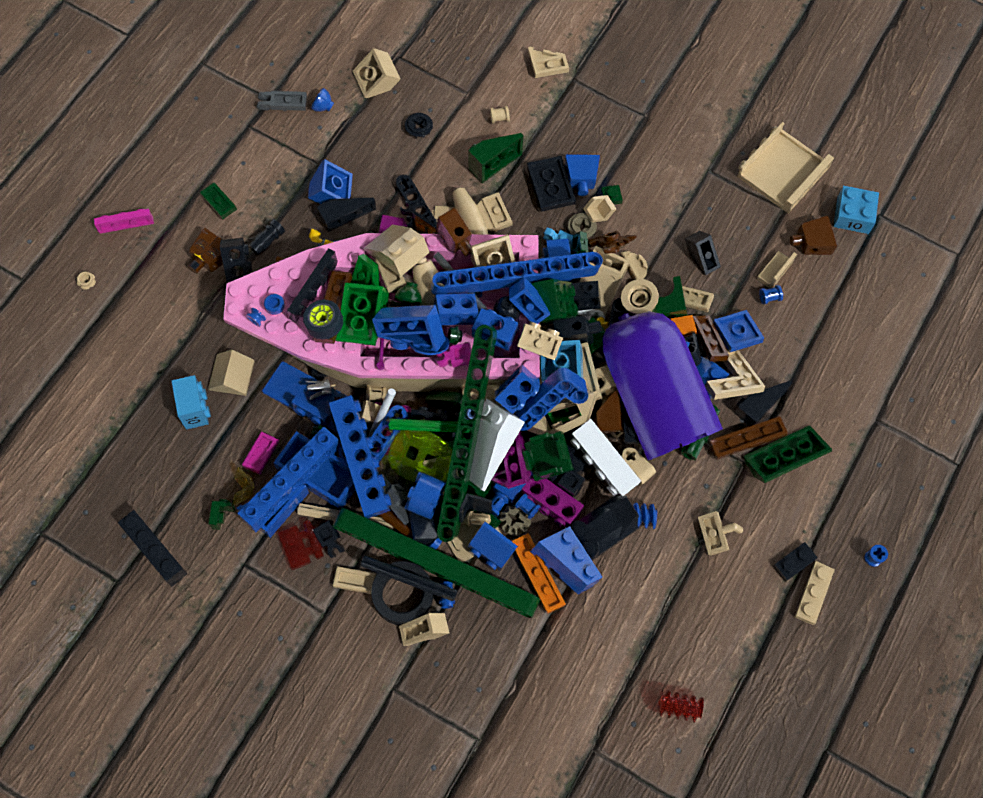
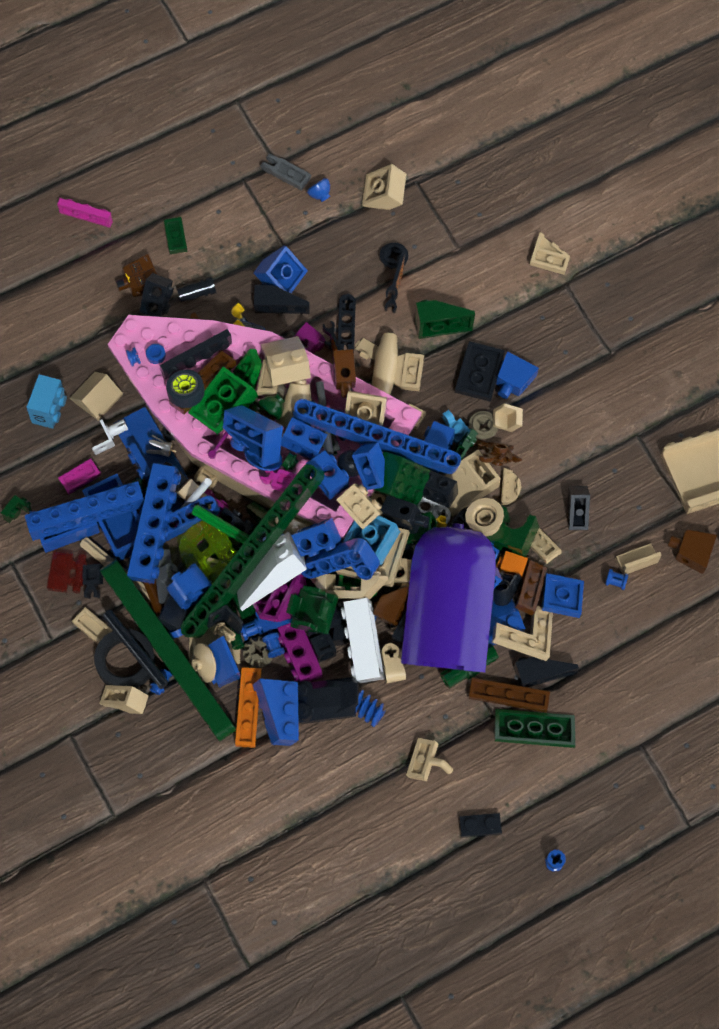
camera: 30 degrees right, 0 degrees up
(82, 277) = (23, 245): tan plate -> none
(246, 483) = (53, 494): clear yellow bracket -> none
(265, 399) = (110, 431): none -> white bracket
(439, 148) = (395, 285): none -> black flag
(477, 555) = (204, 662): none -> tan dish
(499, 114) = (473, 283): tan bush -> none
(614, 193) = (530, 410): dark green plate -> none
(683, 706) = (296, 885): clear red piece -> none
(814, 593) = (479, 861): tan plate -> none

